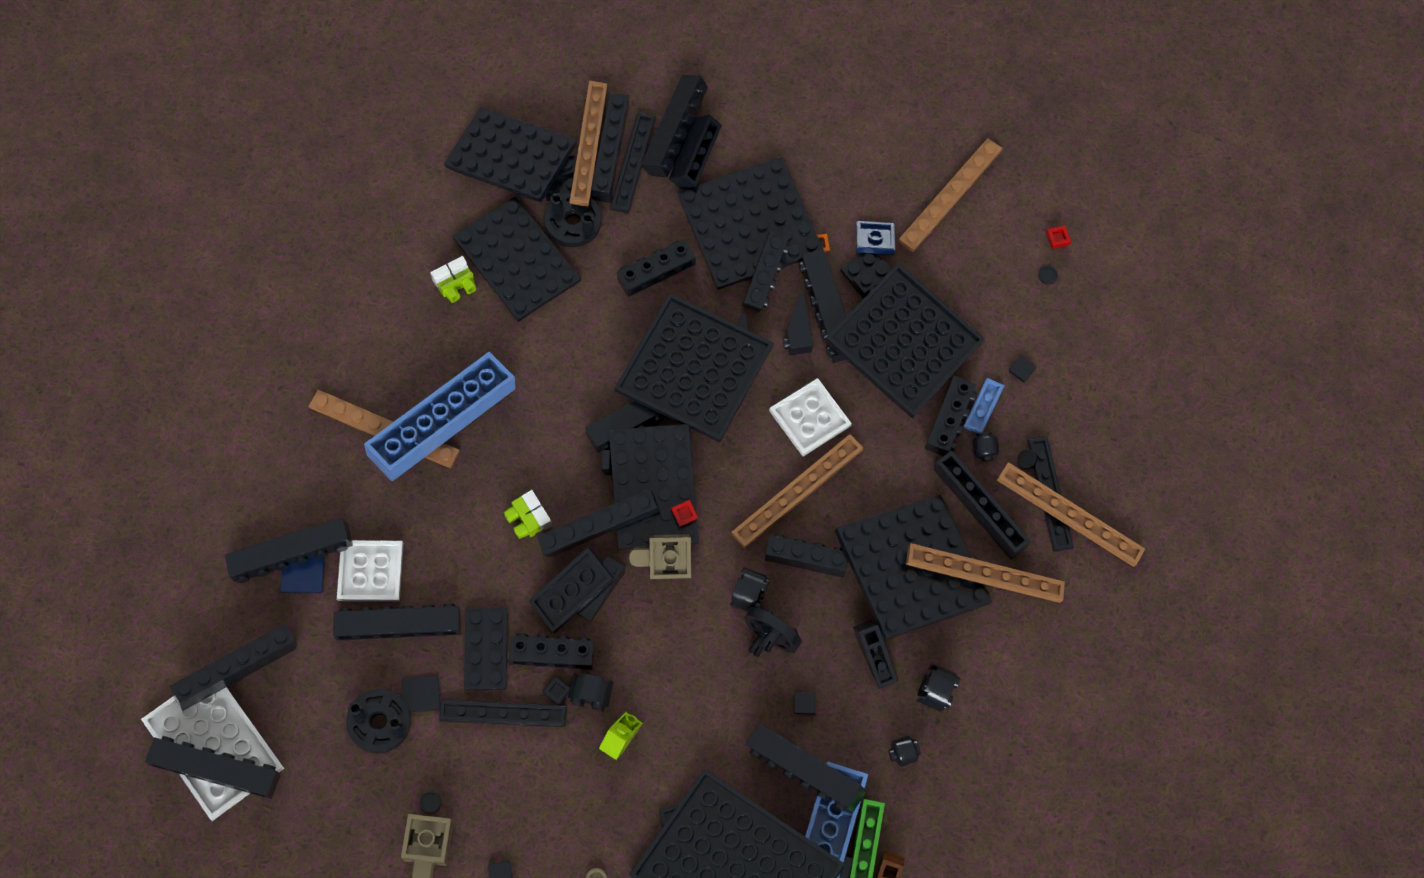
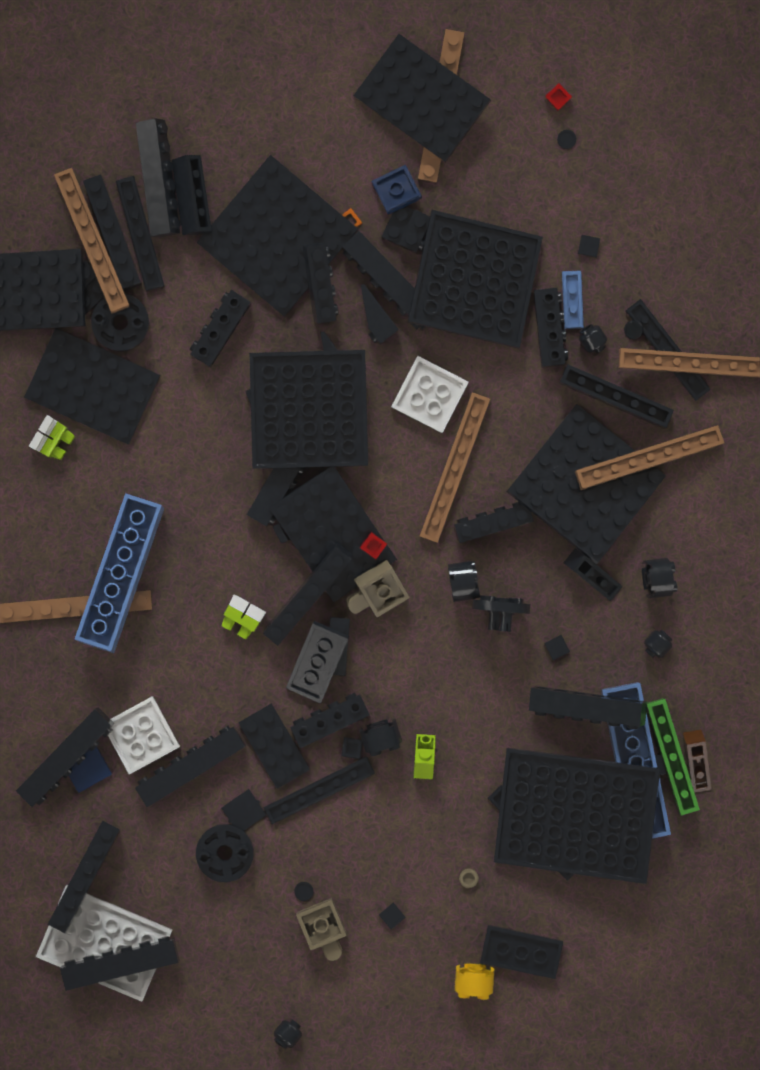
camera: 25 degrees left, 20 degrees up
(938, 178) = (422, 98): none -> black plate

